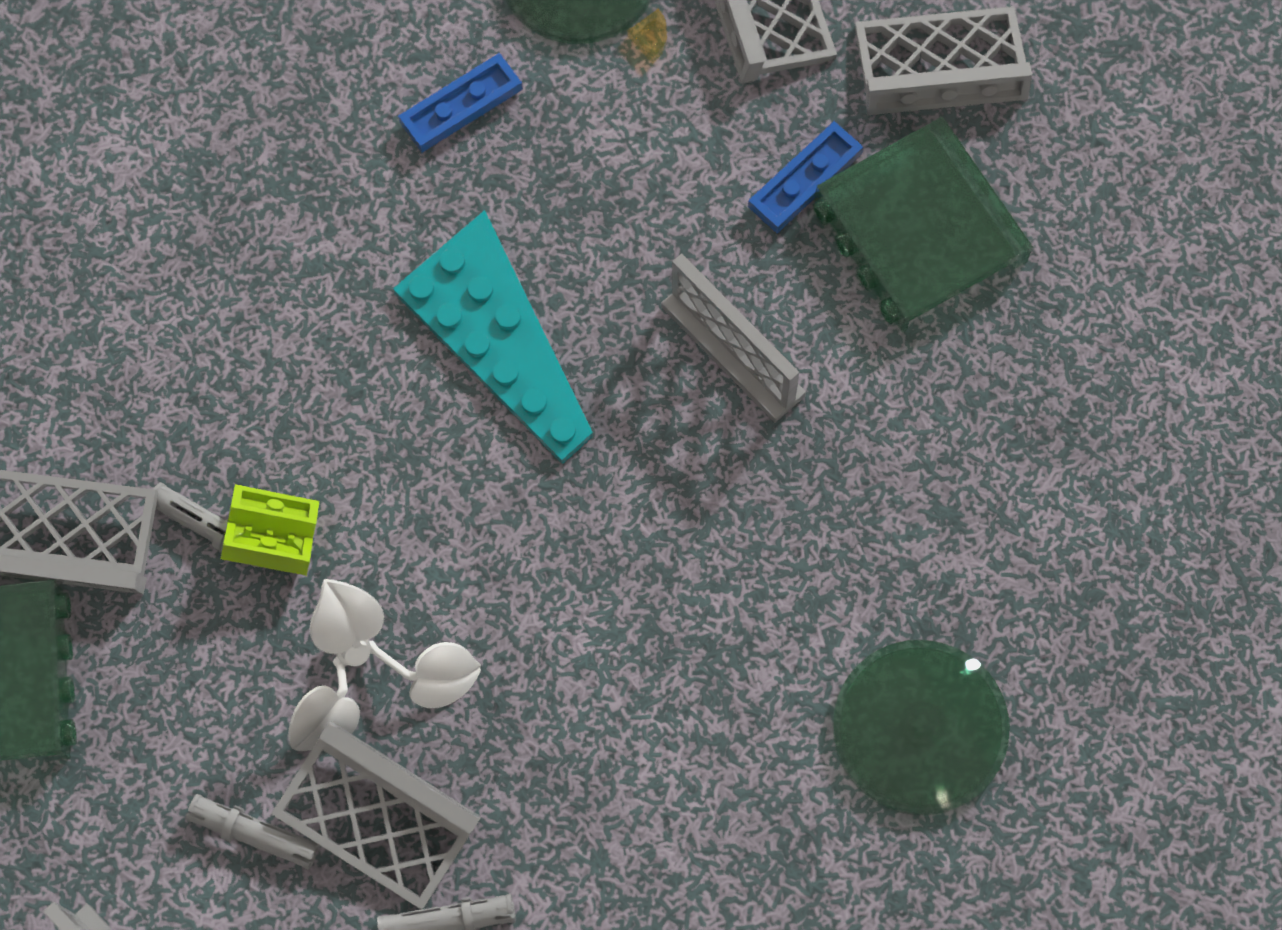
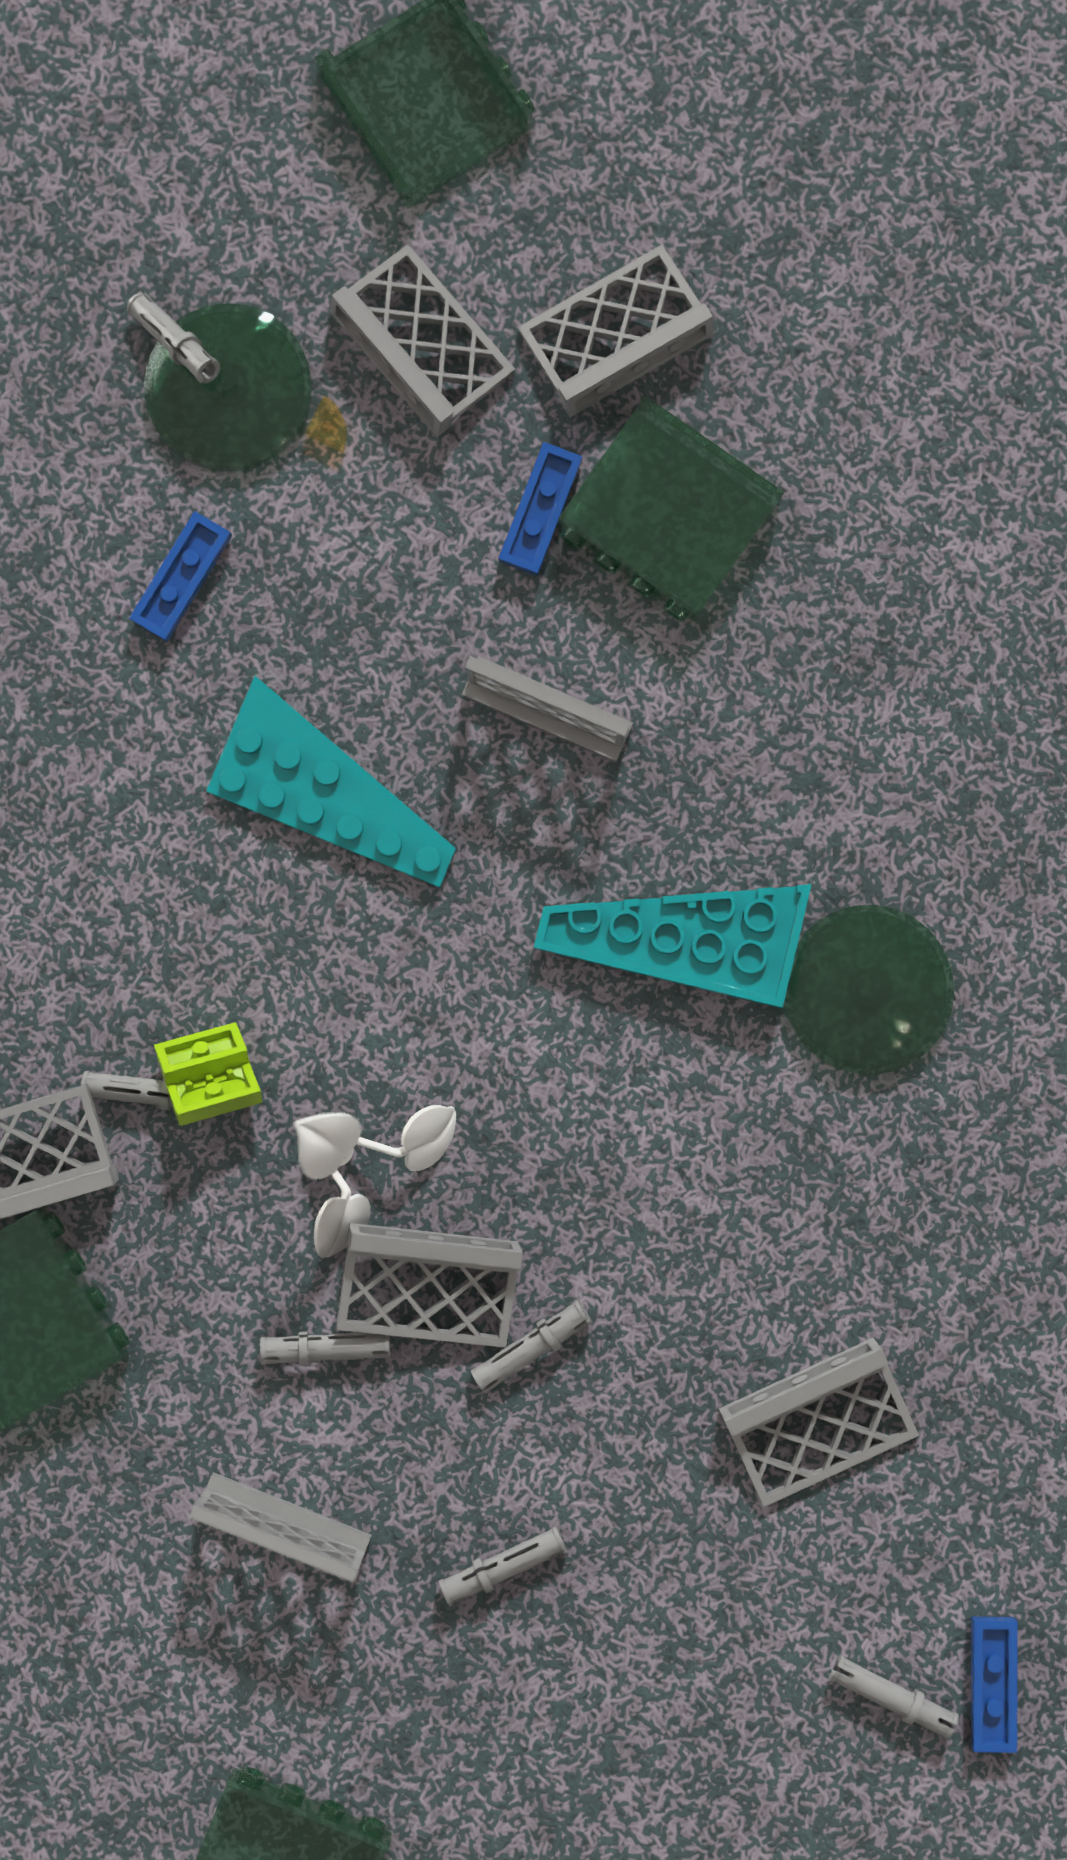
camera: 20 degrees left, 15 degrees up
(782, 611) = (707, 941): none -> teal wing

